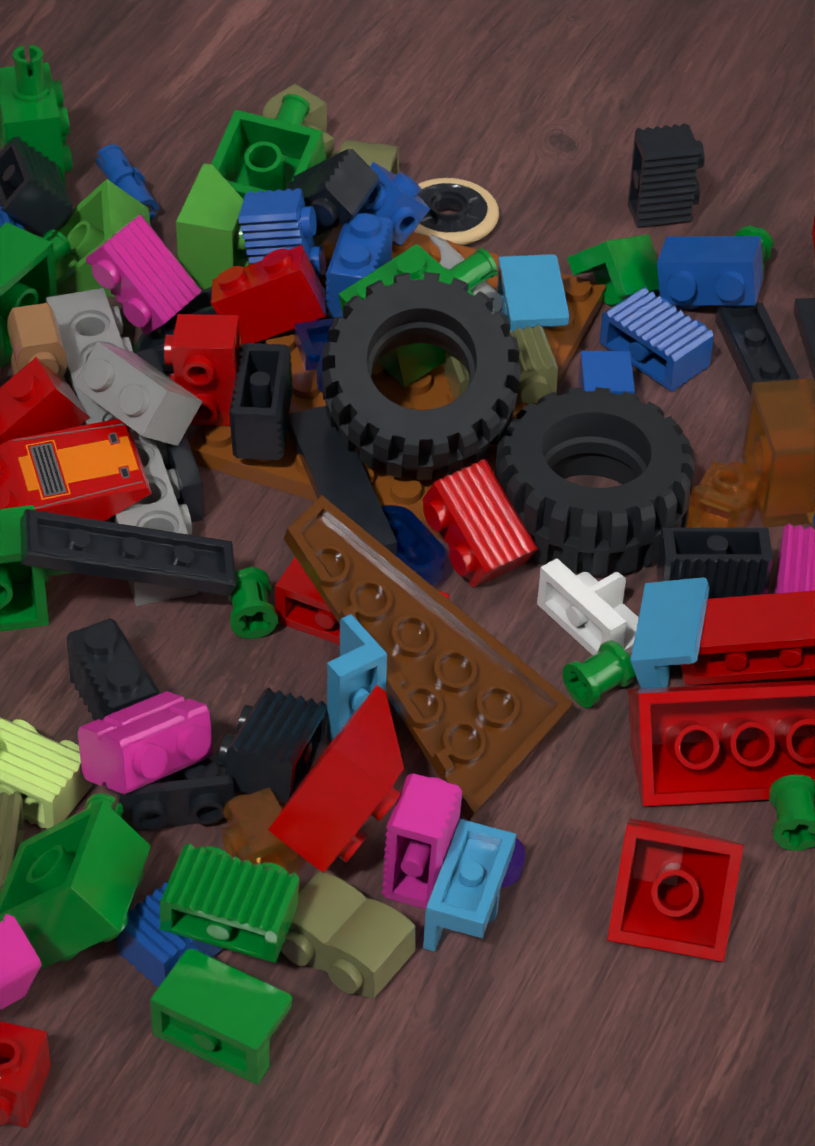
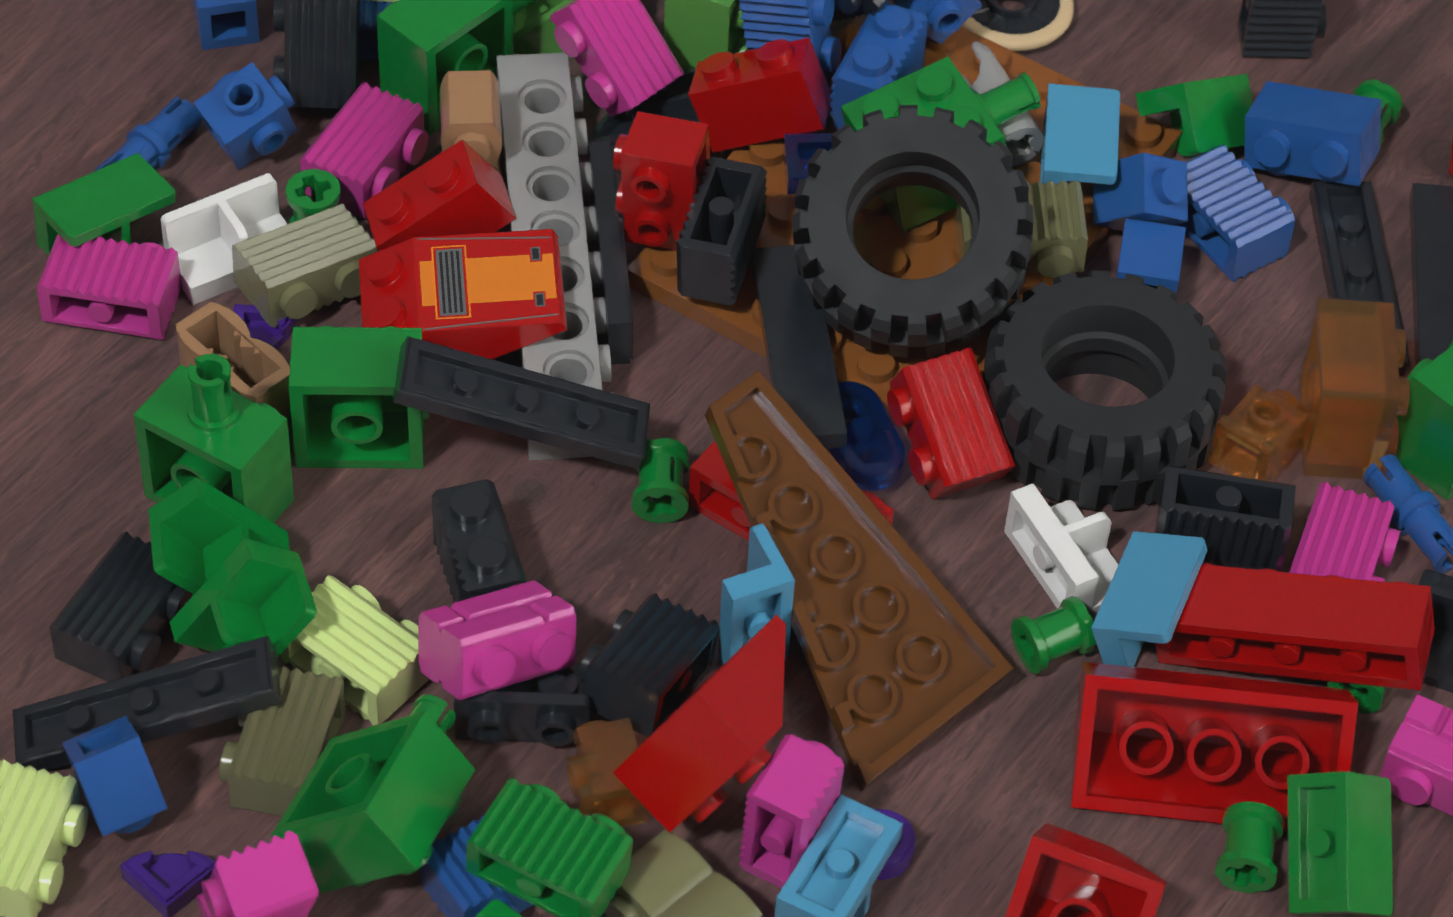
camera: 10 degrees right, 5 degrees up
(137, 393) = (574, 202): light grey brick -> none
(592, 326) = (1144, 190): none -> blue brick

